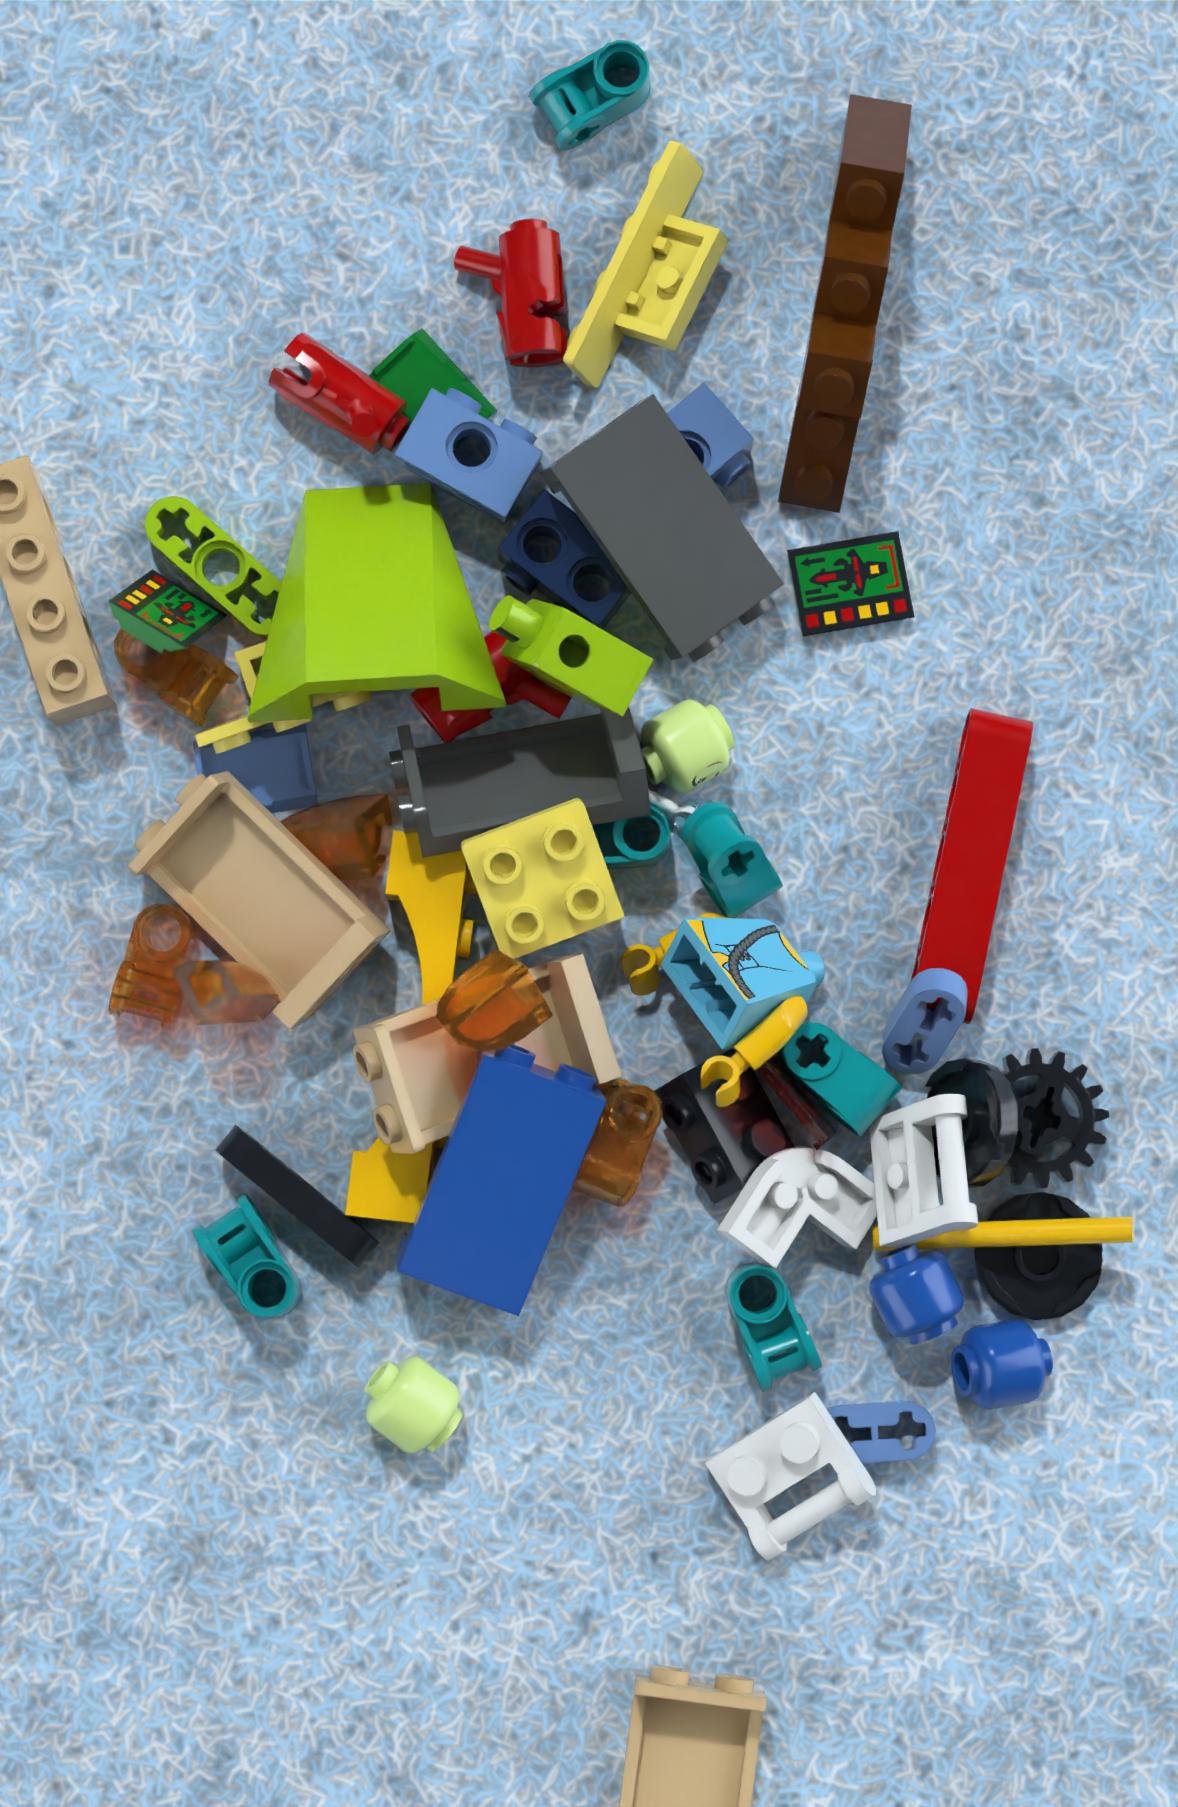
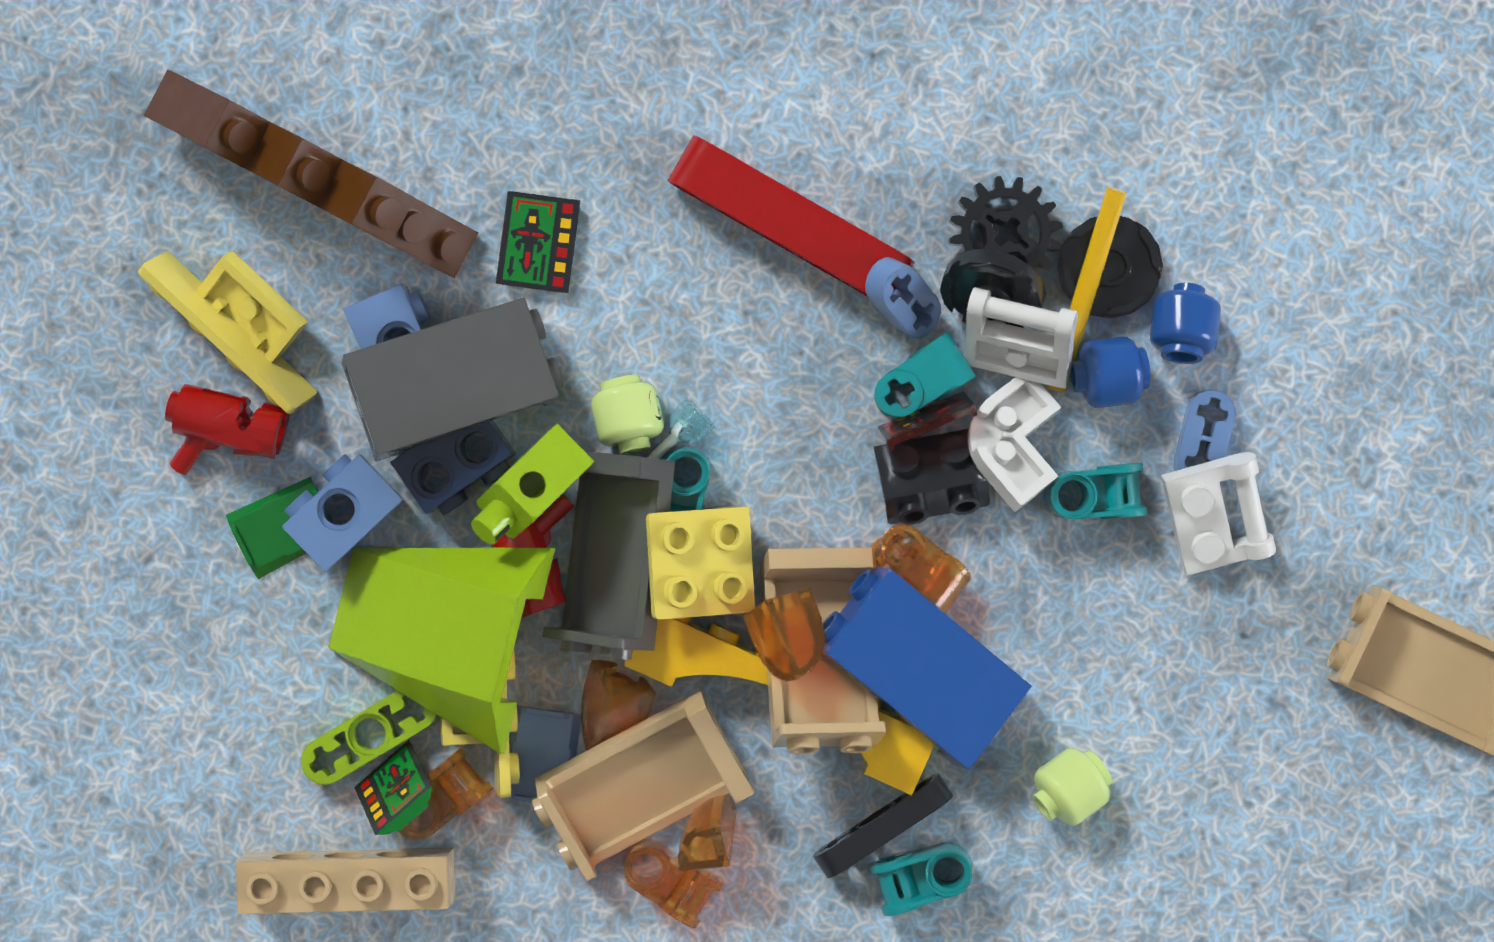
camera: 65 degrees left, 5 degrees up
(342, 396) = (262, 597): red piece -> none
(589, 95) = (78, 324): teal piece -> none
(728, 860) = (728, 409): teal piece -> none
(739, 983) = (827, 434): torso -> none

